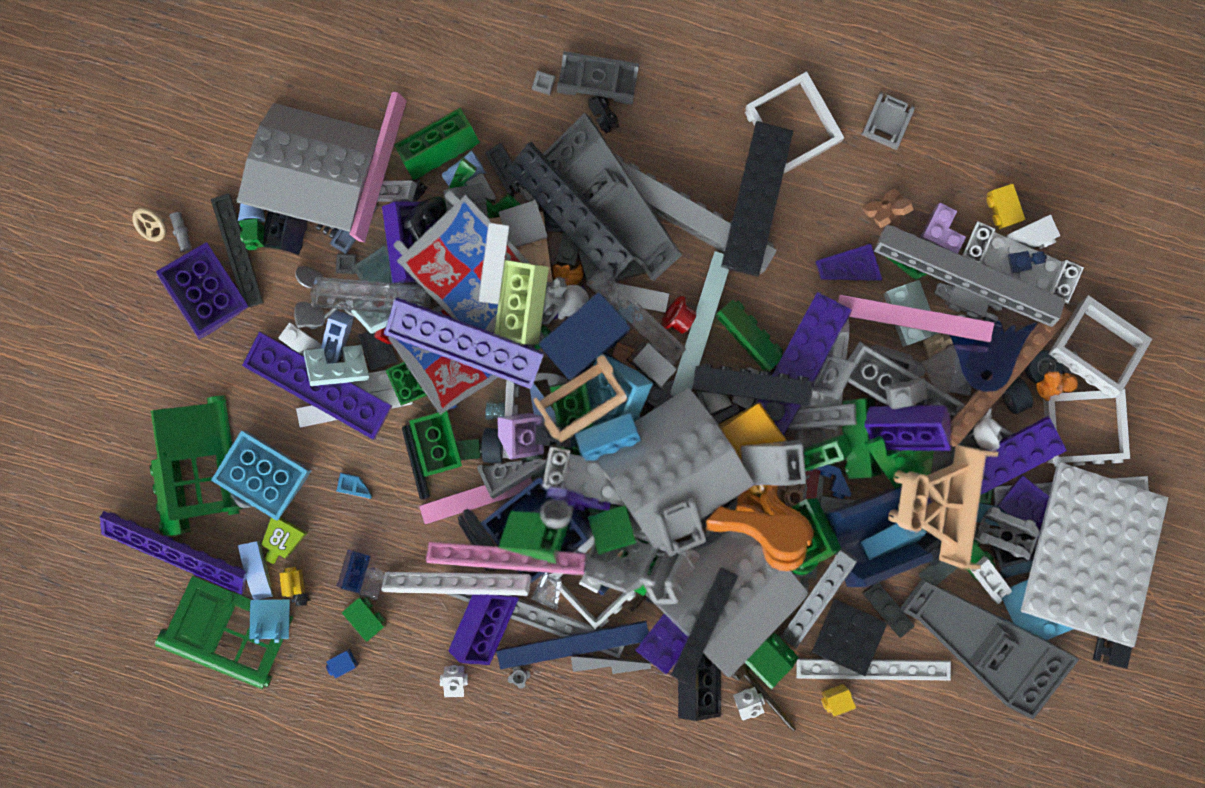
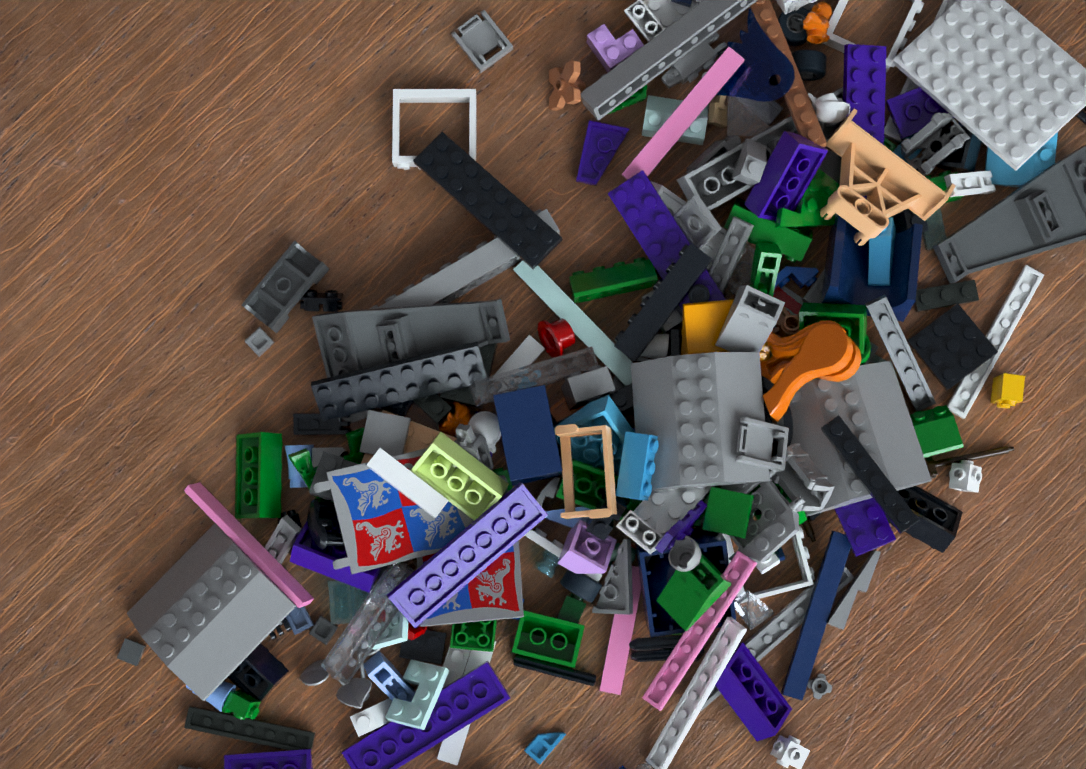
camera: 55 degrees left, 5 degrees down
(245, 124) = (131, 652): none -> dark grey tile

